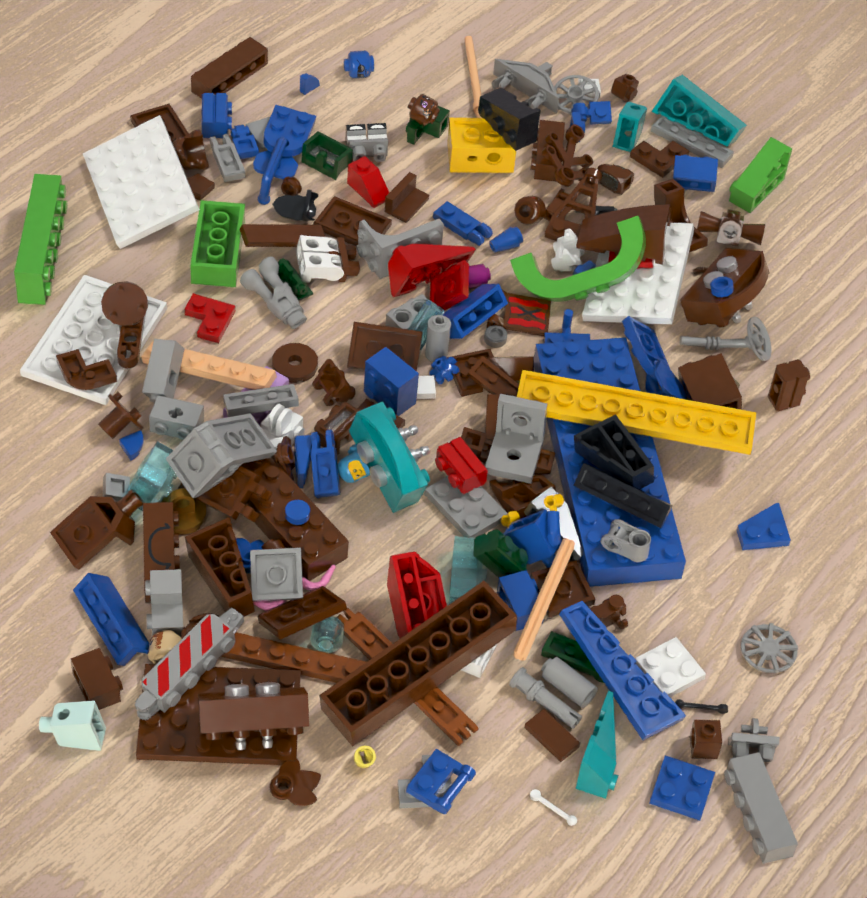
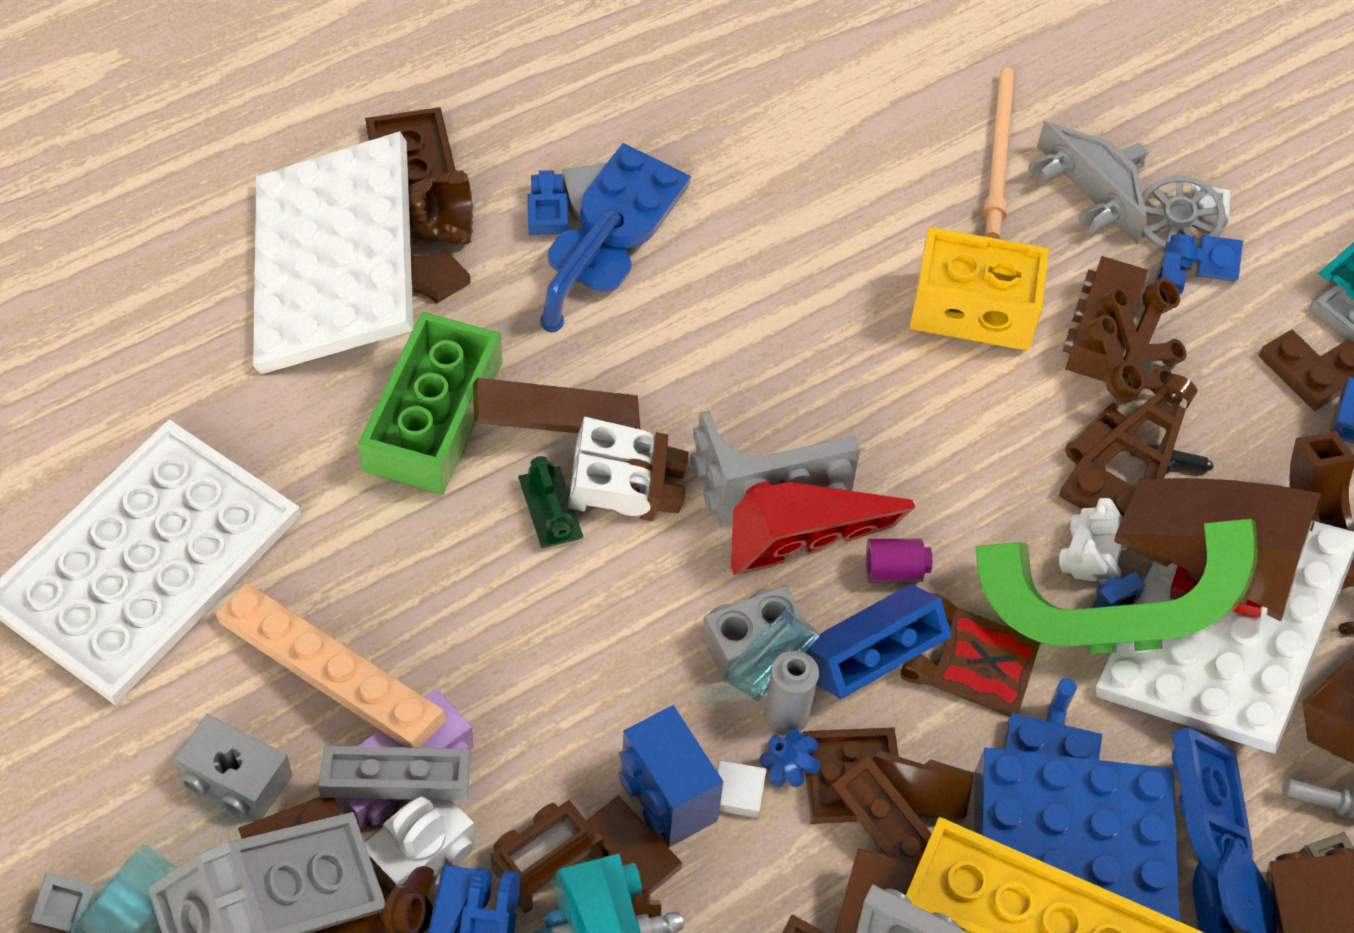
camera: 15 degrees right, 5 degrees up
(40, 239) = (108, 336): bright green brick -> none
(82, 376) = (81, 640): reddish brown plate -> none
(119, 417) = (126, 743): reddish brown piece -> none
(124, 303) = (198, 506): reddish brown piece -> none
(132, 444) = (134, 806): blue tile -> none
(134, 330) = (213, 557): reddish brown beam -> none
(163, 369) = (235, 660): light grey brick -> none
(215, 115) = (512, 144): blue brick -> none
(215, 316) = (385, 545): red plate -> none
(227, 159) = (508, 233): light grey hinge -> none
(230, 68) = (563, 63): reddish brown brick -> none
(283, 301) = (516, 543): light grey piece -> none
(291, 186) = (606, 307): reddish brown plate -> none
(295, 352) = (504, 658): reddish brown tile -> none
(297, 206) = (604, 350): black piece -> none
(308, 83) = (696, 110): blue tile -> none
(326, 155) = (688, 255): dark green window -> none
(334, 384) = (562, 751): reddish brown piece -> none
(342, 220) = (686, 384): reddish brown tile -> none
(359, 64) = (797, 89): blue head -> none
(367, 181) = (750, 324): red slope -> none
(371, 144) = (782, 255): light grey hips -> none
(371, 338) = (706, 690): reddish brown tile -> none
(405, 199) = (811, 370): reddish brown panel -> none
(415, 130) = (892, 216): dark green brick -> none
(423, 109) = (885, 201): reddish brown head -> none
(450, 286) = (844, 580): red plate -> none
(462, 223) = (906, 439): blue hinge -> none
(495, 336) = (912, 699): flat silver tile -> none
(506, 240) = (983, 492): blue cone -> none
(510, 117) = (1041, 250): black wedge -> none
(530, 210) = (1041, 438): reddish brown head -> none
(615, 178) = (1222, 398): reddish brown rock -> none
(625, 87) = (1277, 216): reddish brown plate -> none
(630, 119) = (1276, 283): teal torso -> none

